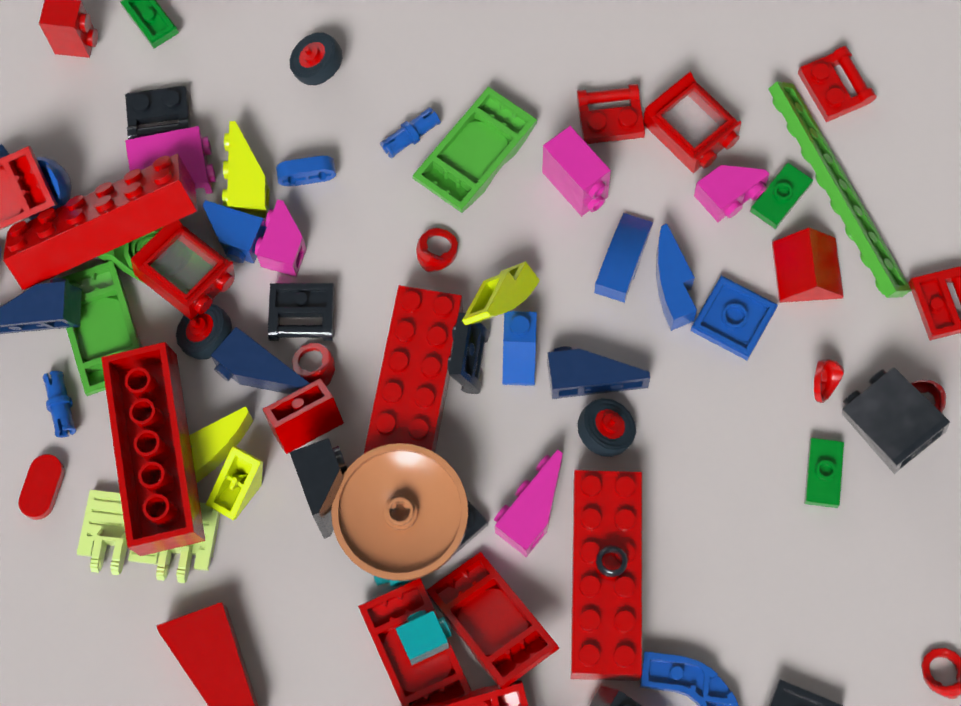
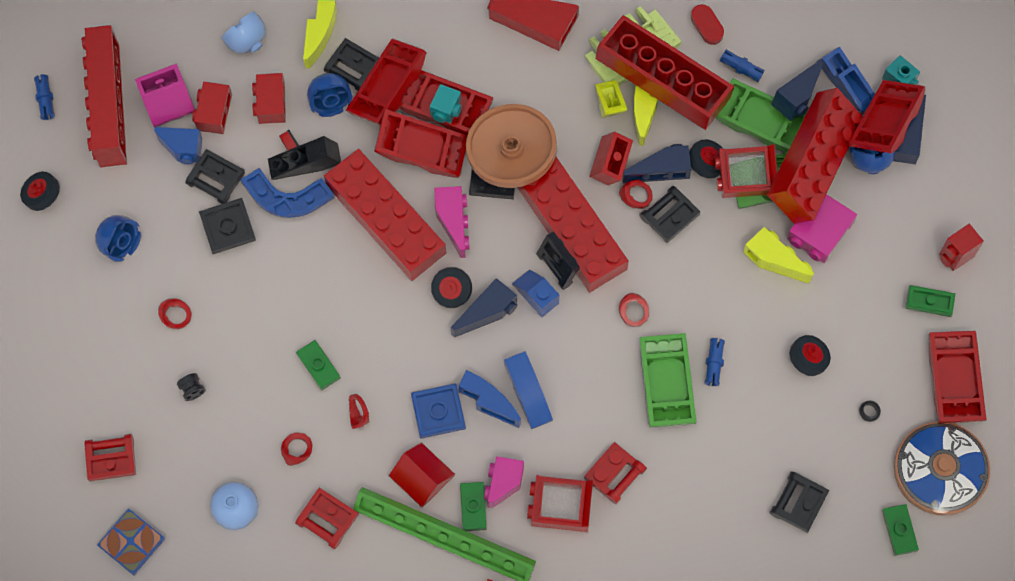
camera: 135 degrees right, 0 degrees up
(155, 107) = (868, 257): black plate -> none
(235, 231) = (748, 221): blue slope -> none
(282, 244) = (717, 239): dark pink slope -> none
(306, 171) = (747, 288): blue beam -> none
(320, 475) = (567, 124): black slope -> none
(502, 293) = (567, 298): neon yellow slope -> none
(576, 171) = (595, 408): dark pink piece -> none
(611, 549) = (386, 217): black piece -> none
(894, 418) = (301, 415): black slope -> none

